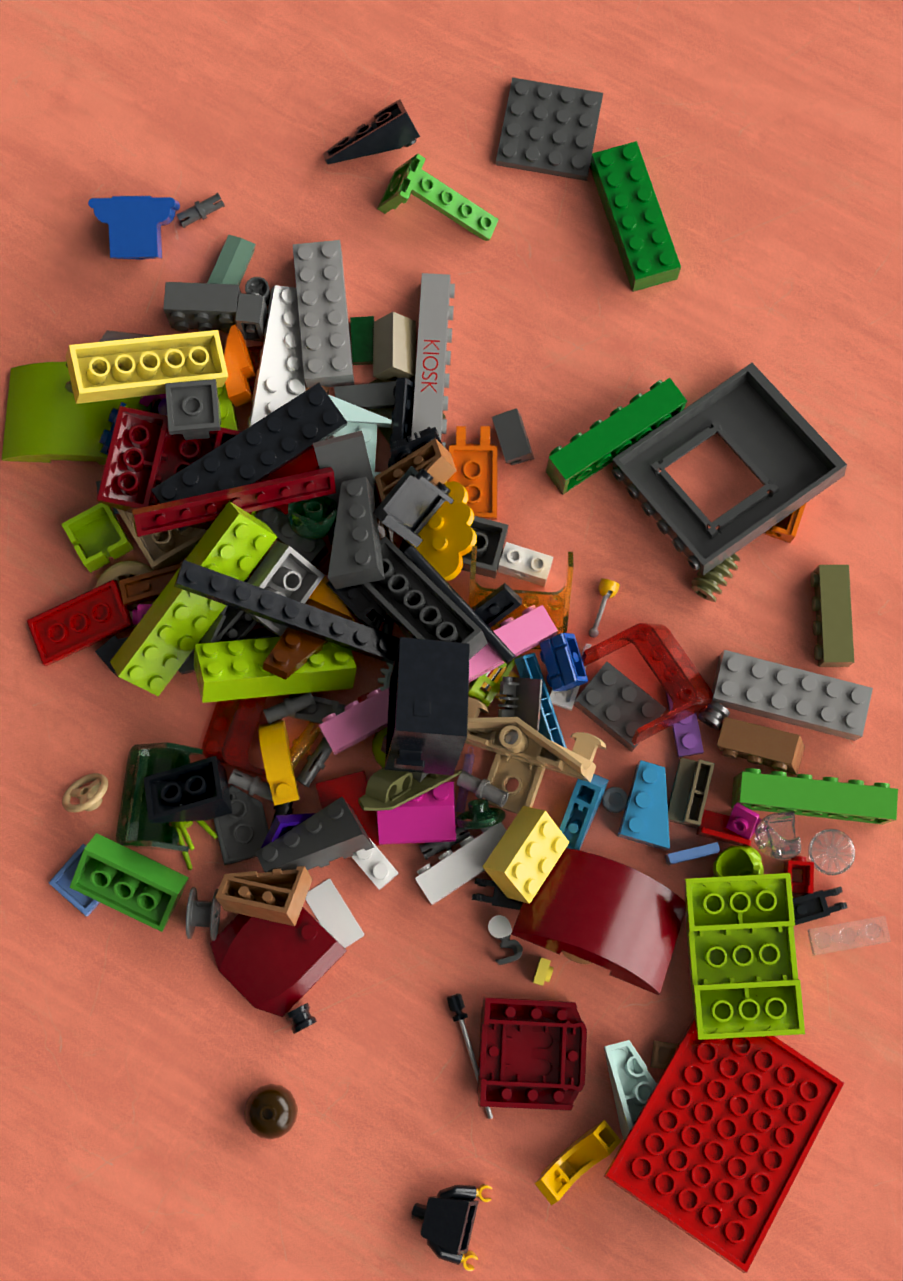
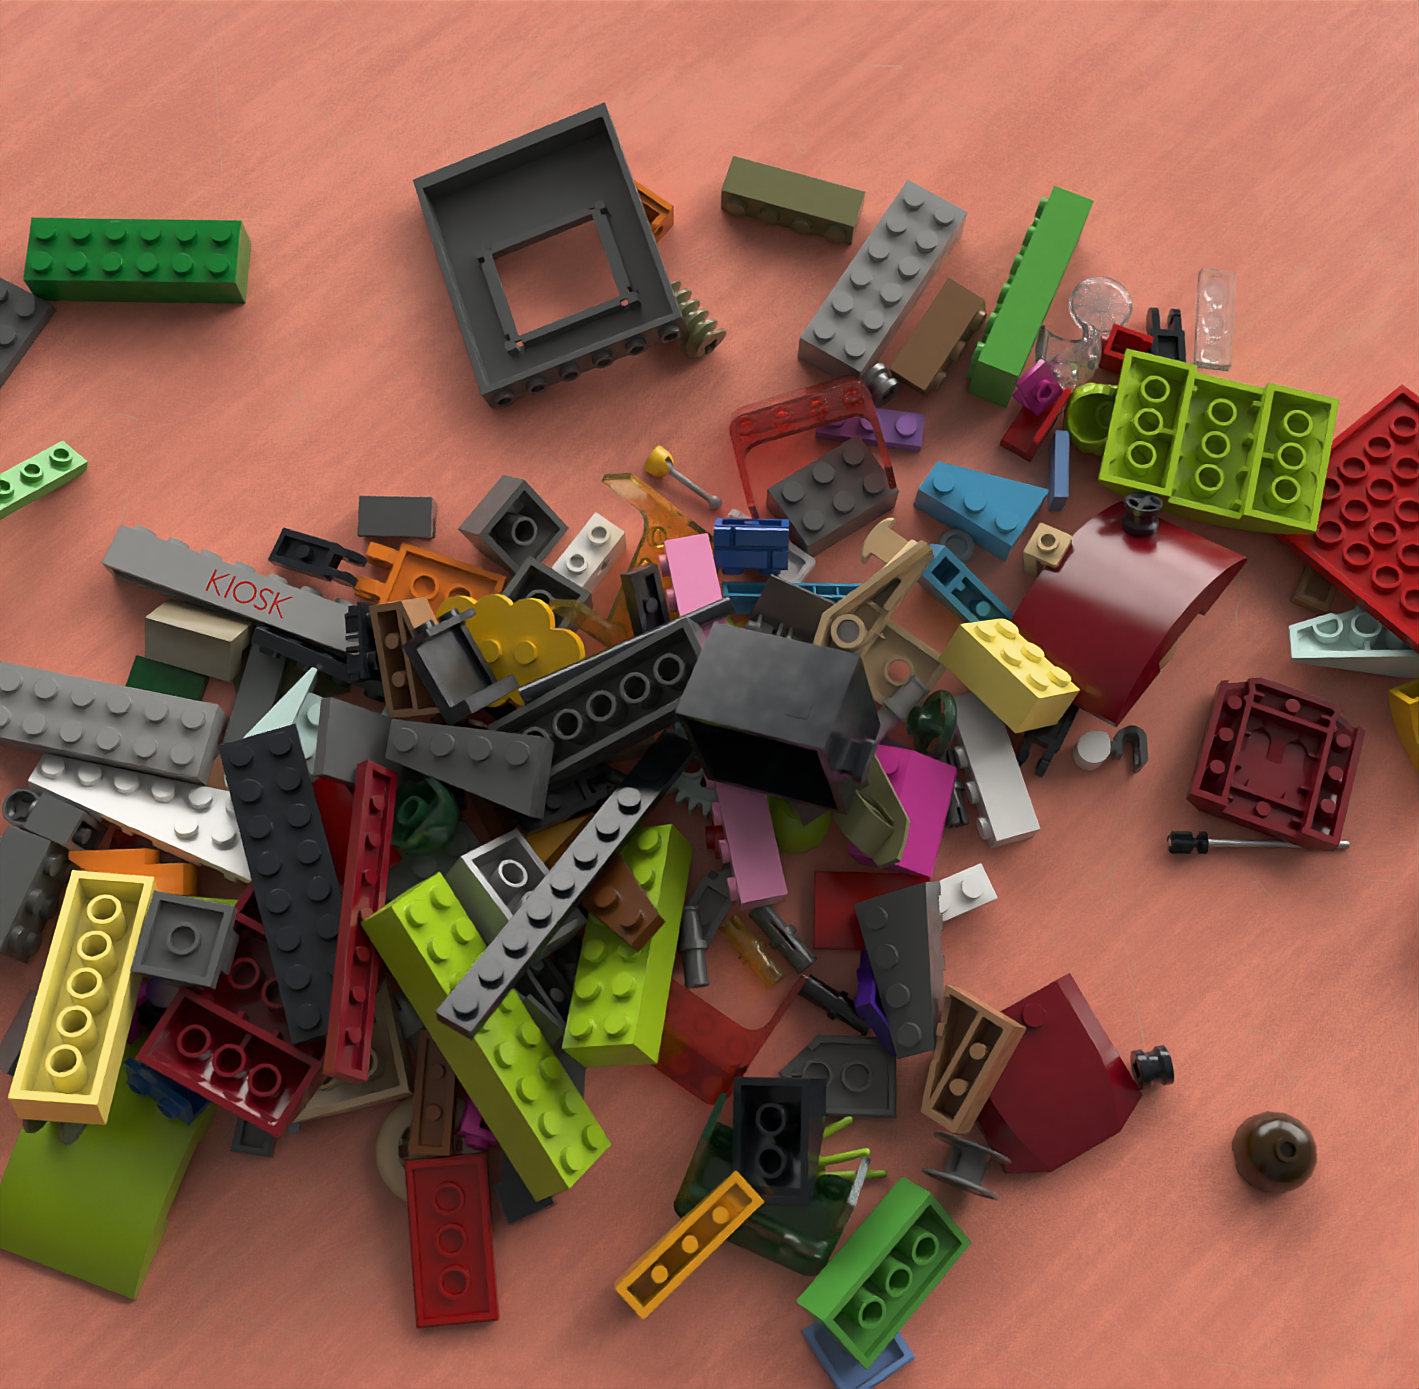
camera: 75 degrees left, 5 degrees down
(89, 796) = (730, 1302): tan piece -> none
(99, 536) = (323, 1169): lime piece -> none
(109, 758) = (687, 1245): none -> light orange slope
(251, 784) = (790, 1037): light grey pin -> none
(277, 762) = (770, 983): yellow arch -> none
(333, 913) = (1010, 977): white sticker -> none
(469, 396) = (315, 557): none -> black hinge
(531, 510) = (513, 525): none -> dark grey slope
(543, 972) = (1168, 711): light yellow plate -> none
(608, 438) = (448, 381): green brick -> none
(628, 858) = (1045, 548): none -> tan bracket
(671, 915) = (1141, 514): none -> black wheel
(690, 792) = (974, 442): dark tan piece -> none

